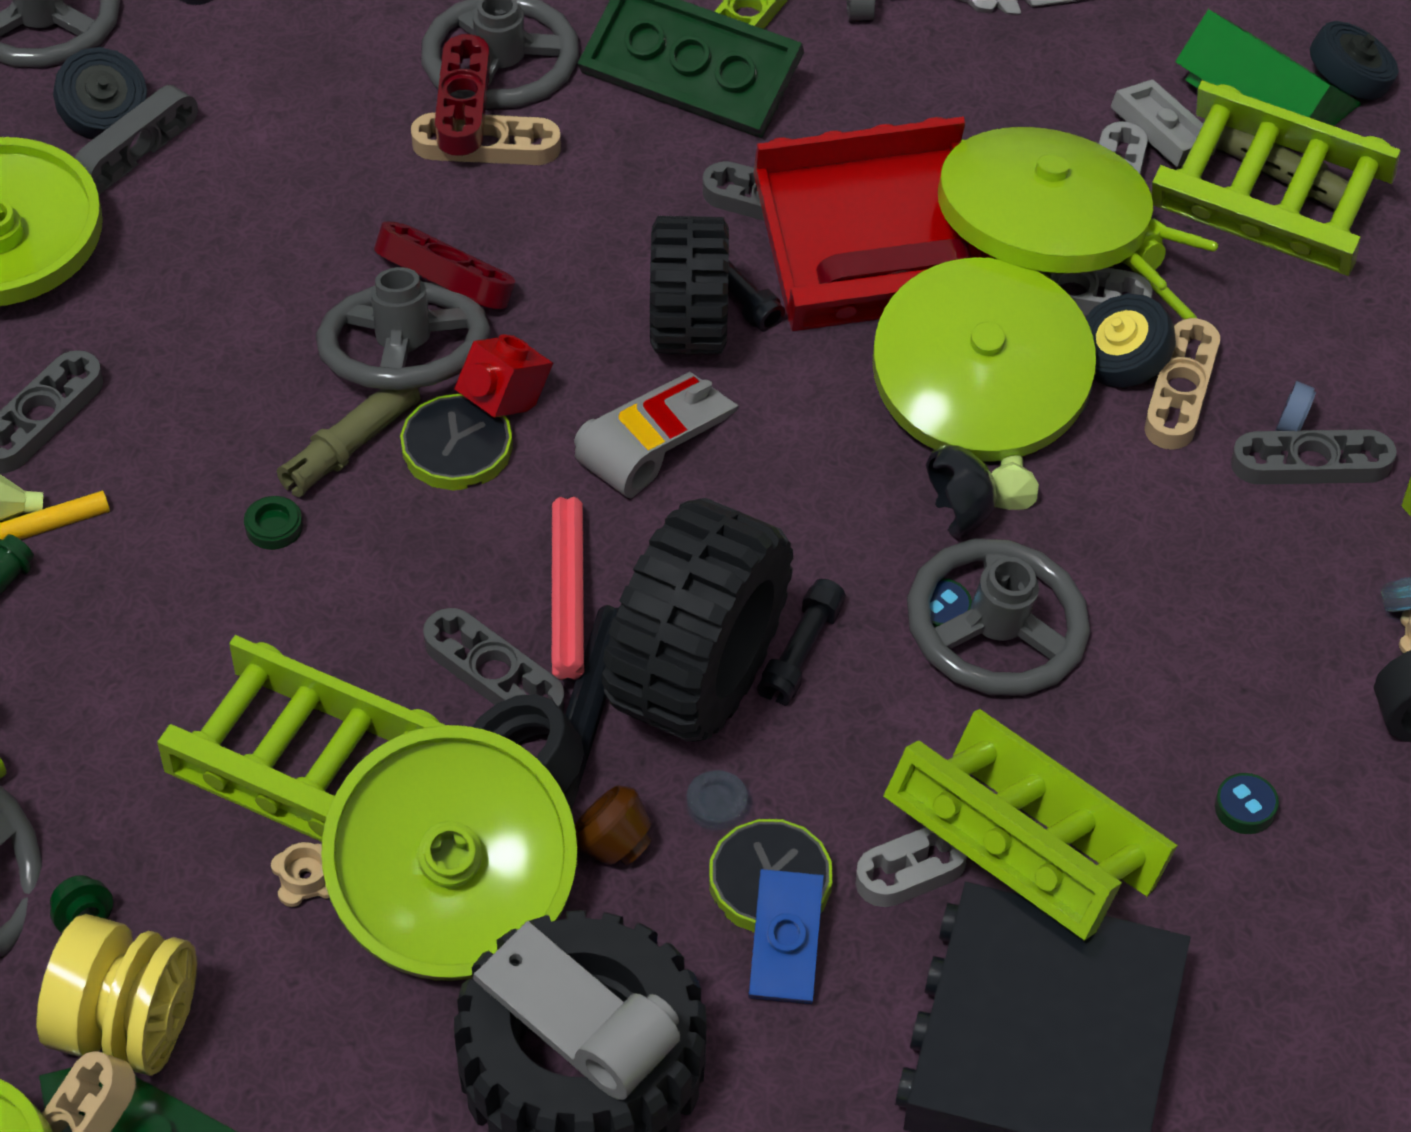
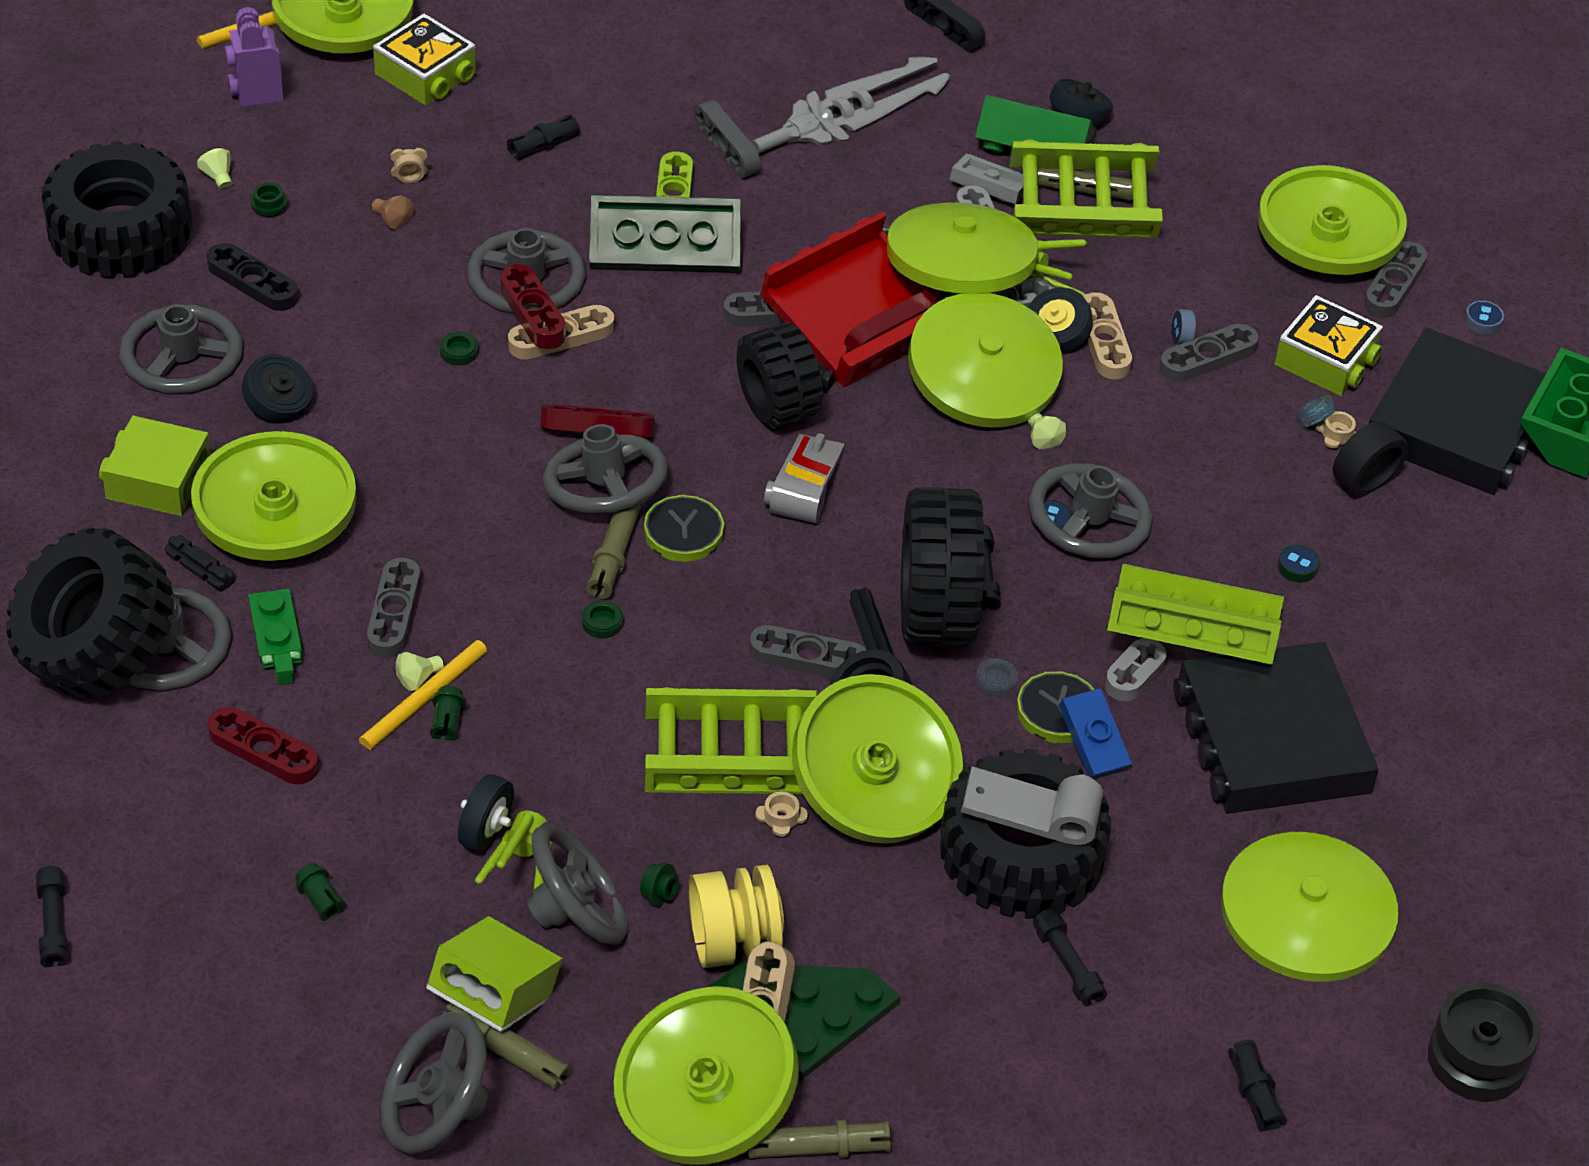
camera: 30 degrees left, 5 degrees down
(157, 120) = (325, 402): dark grey beam -> none
(352, 118) = (458, 348): none -> dark green tile
(503, 375) = (693, 473): red brick -> none
(567, 589) = (823, 588): coral axle -> none
(614, 827) = (958, 707): reddish brown cone -> none
(963, 485) = (1022, 440): black hair -> none

